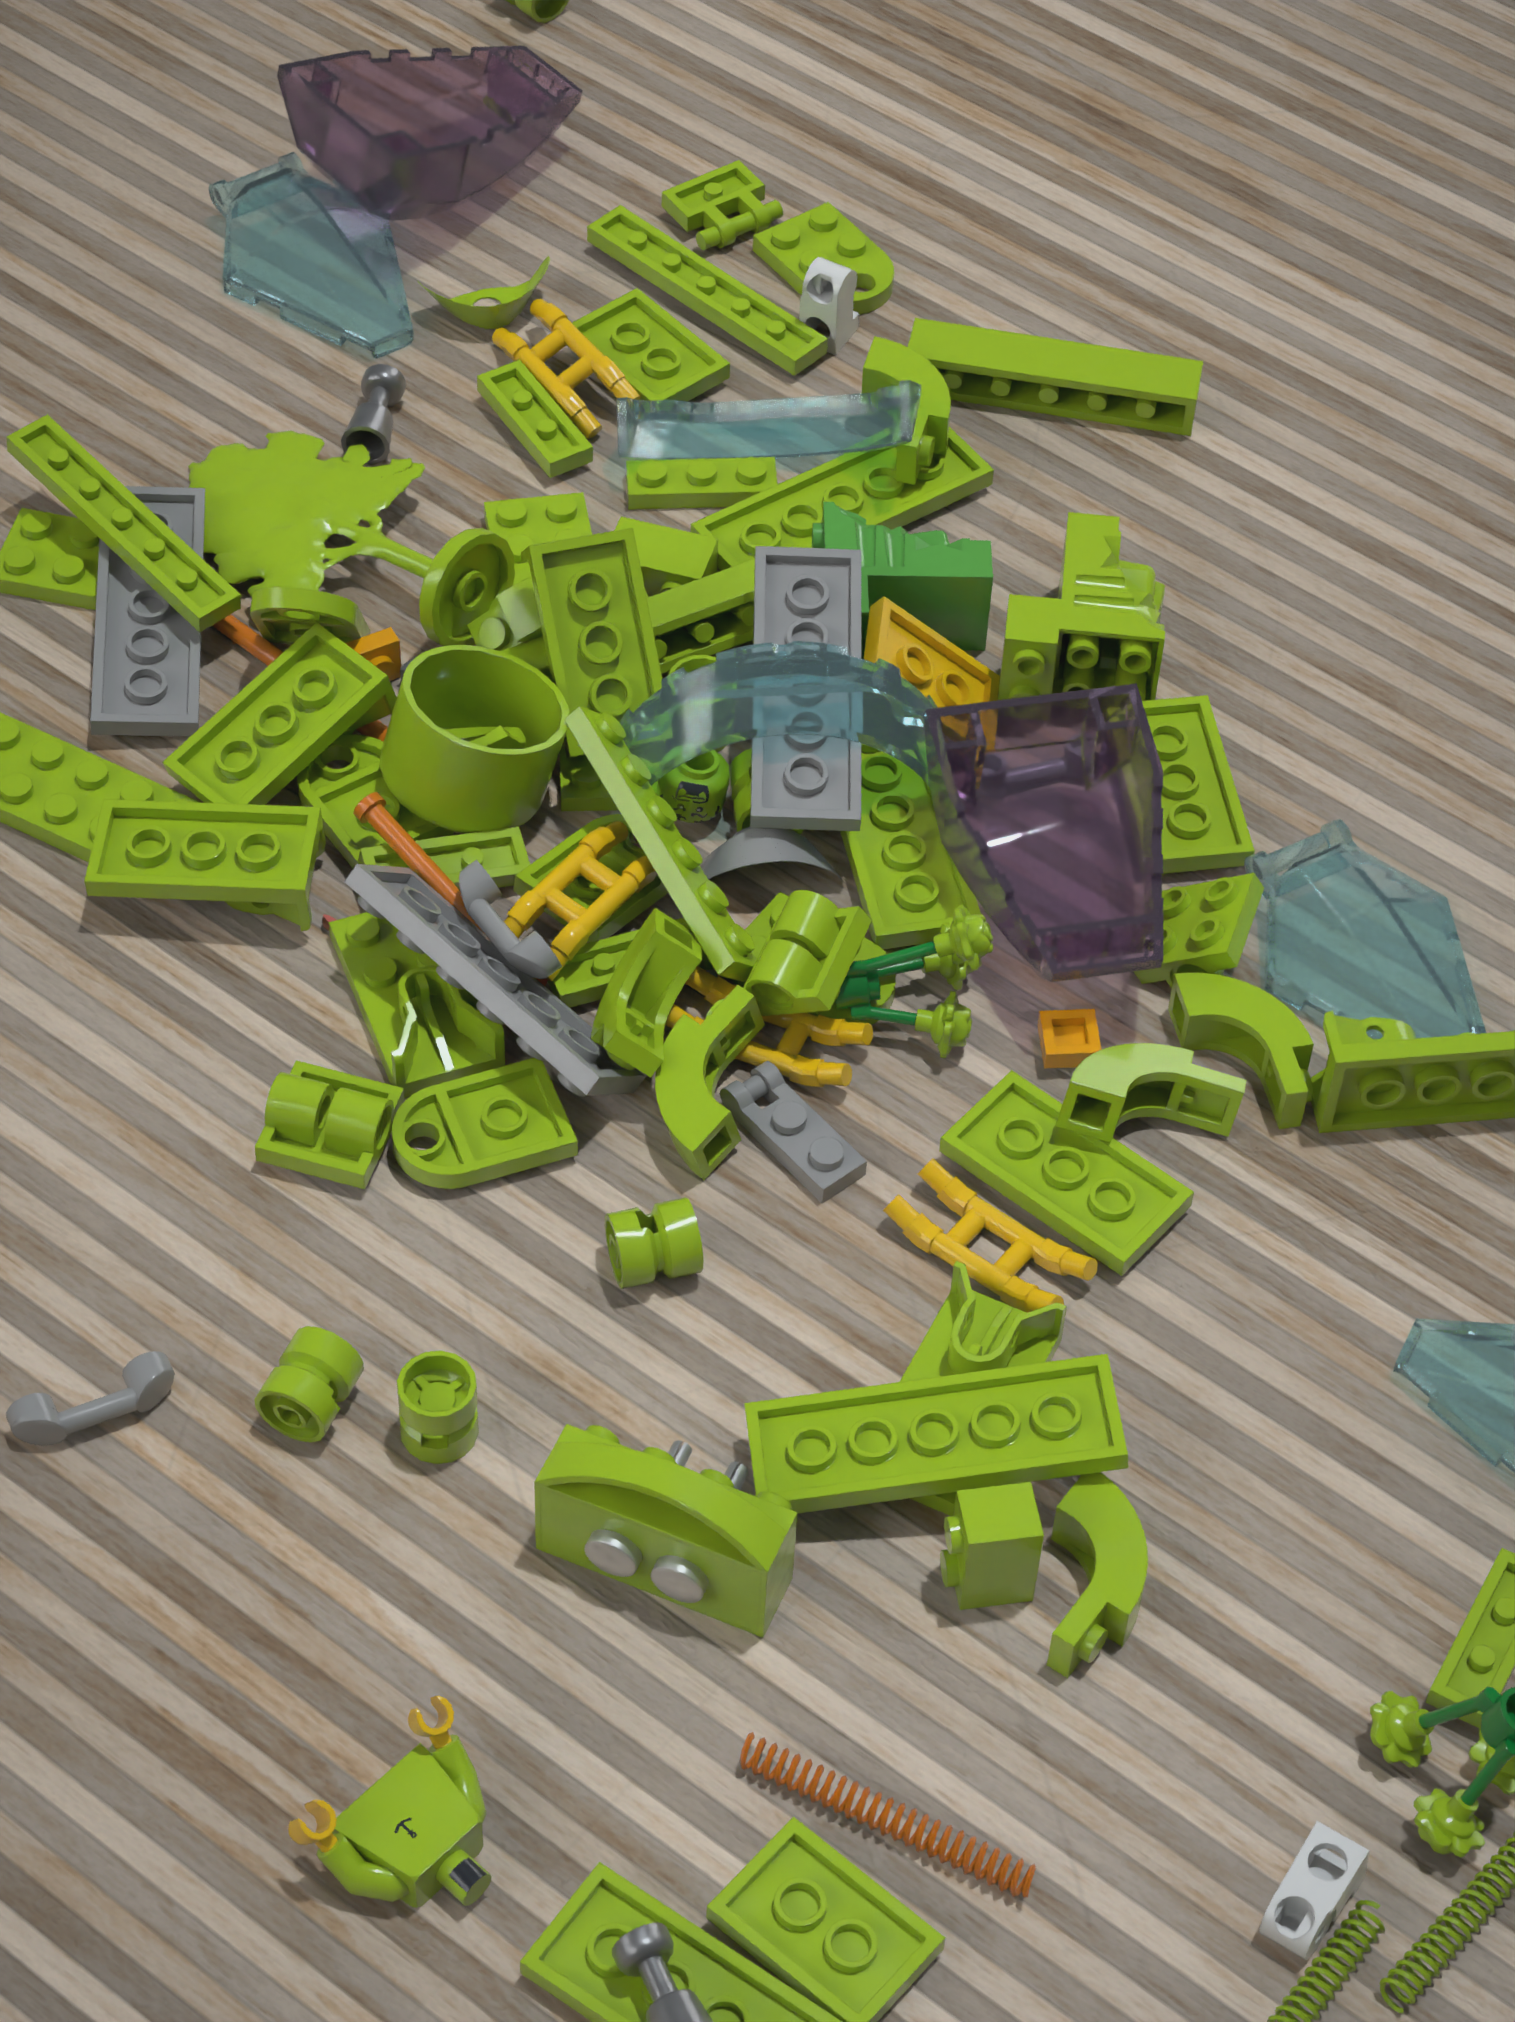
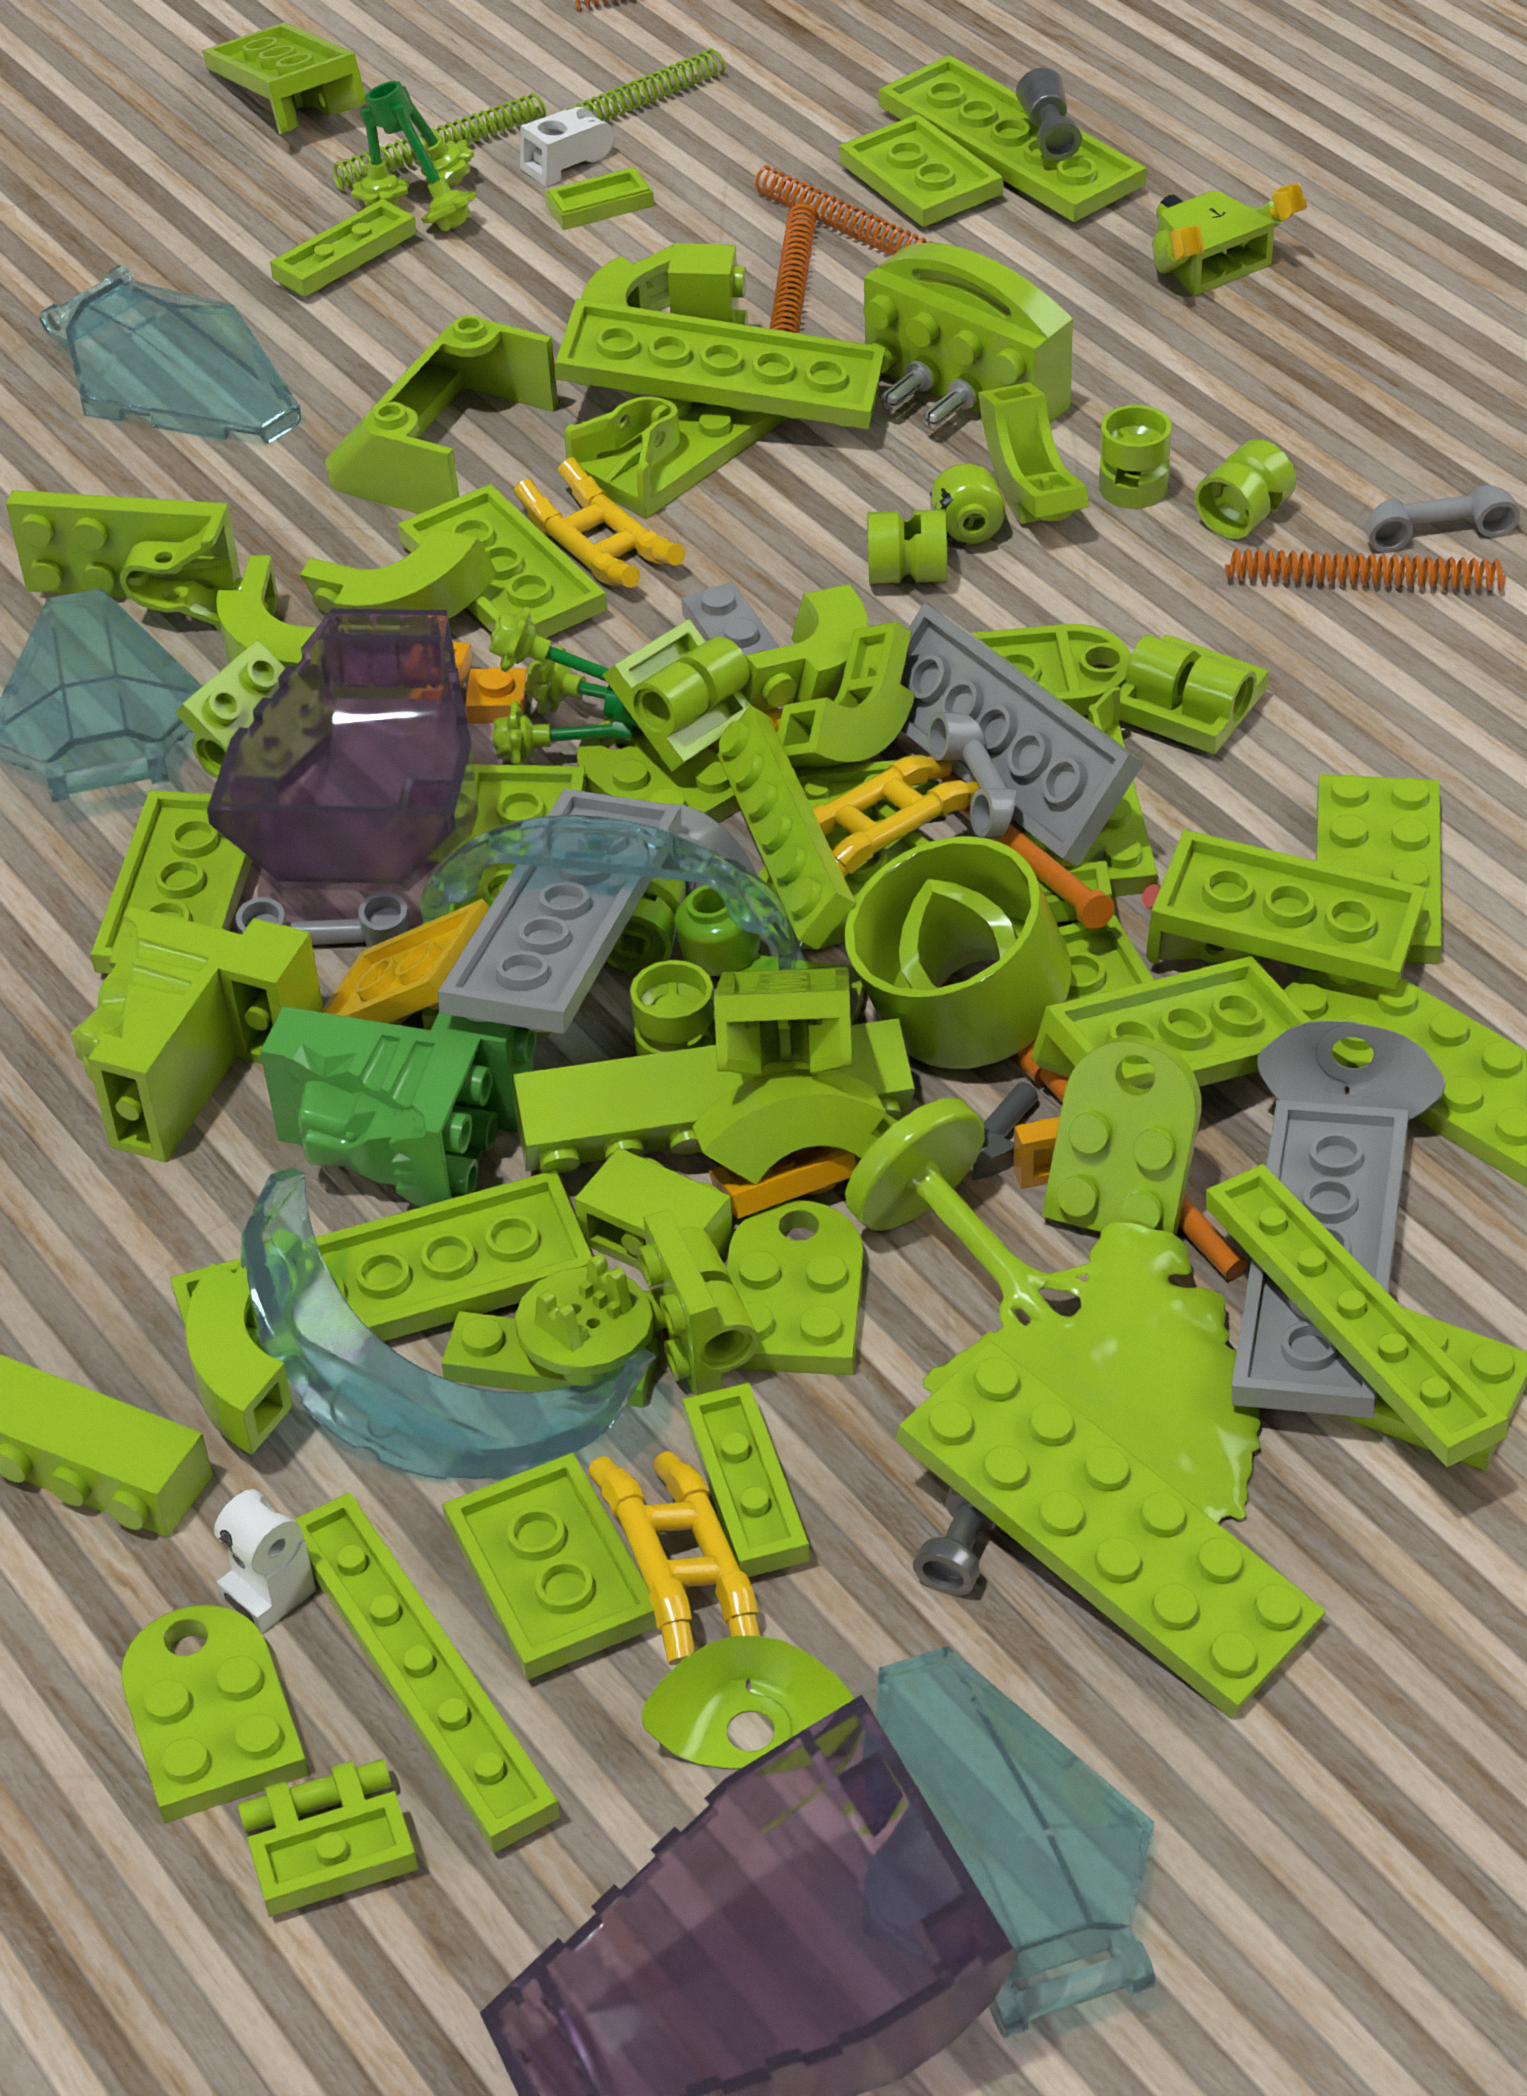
camera: 160 degrees left, 5 degrees down
(131, 755) = (1302, 1068): none -> light grey piece
(131, 984) = (1388, 832): none -> lime plate
(173, 1323) = (1331, 567): none -> orange piece
(280, 403) = (1111, 1528): none -> lime plate
(540, 1369) = (1026, 455): none -> lime arch
(601, 472) = (694, 1304): none -> lime plate
(607, 1318) = (970, 502): none -> lime head
(660, 464) = (584, 1321): none -> lime plate
(928, 1724) = (785, 266): none -> orange piece
(1002, 1032) = (492, 692): none -> light orange plate
(1228, 1816) = (599, 198): none -> lime tile
(1238, 1411) = (383, 453): none -> lime windscreen

